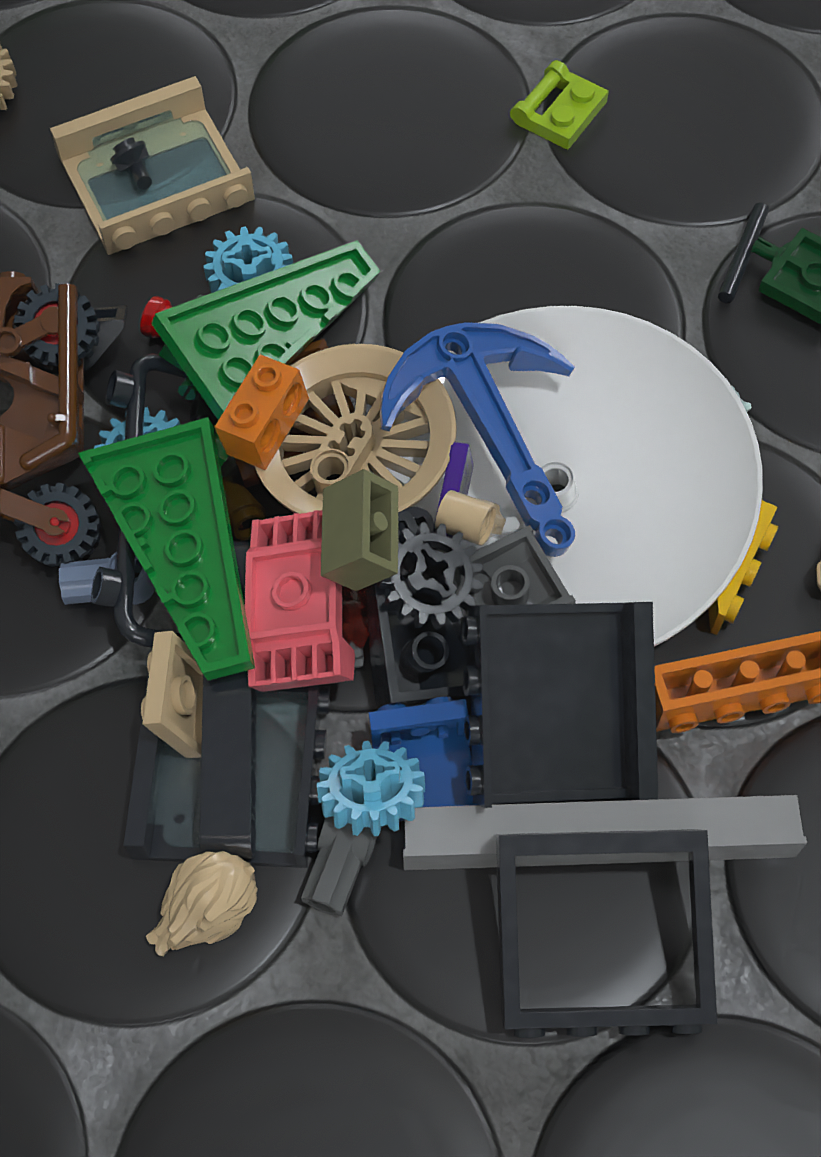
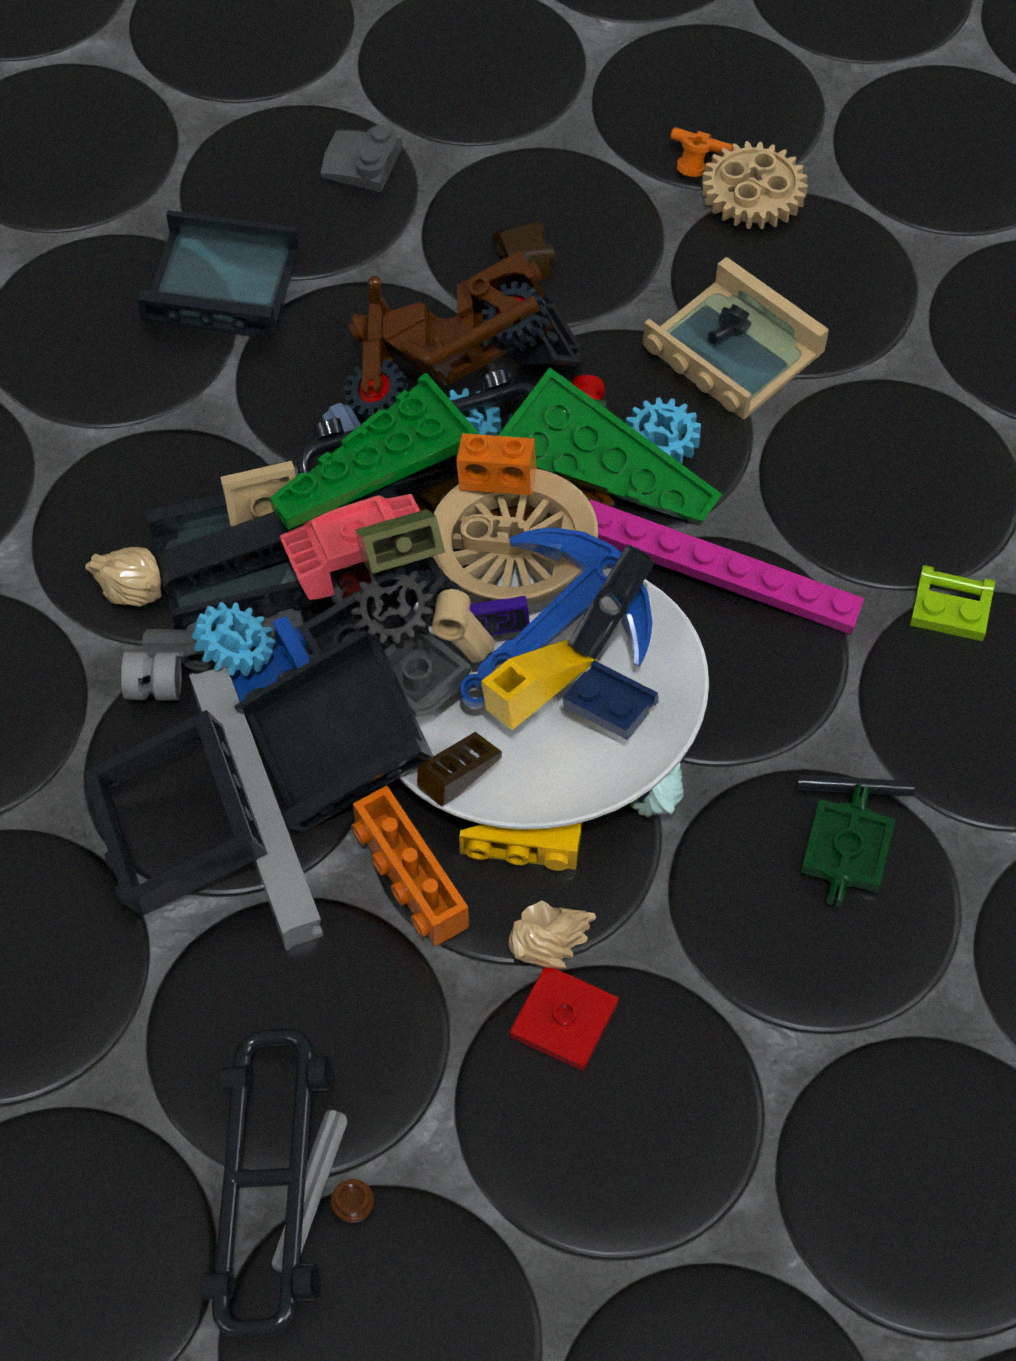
camera: 70 degrees right, 5 degrees down
(375, 912) = (151, 676): none -> light grey wheel
(456, 264) = (729, 569): none -> dark pink plate
(511, 352) = (600, 622): none -> black piece
(571, 469) = (531, 680): none -> yellow slope
(613, 407) = (610, 700): none -> dark blue plate
(670, 607) = (443, 786): none -> dark brown slope

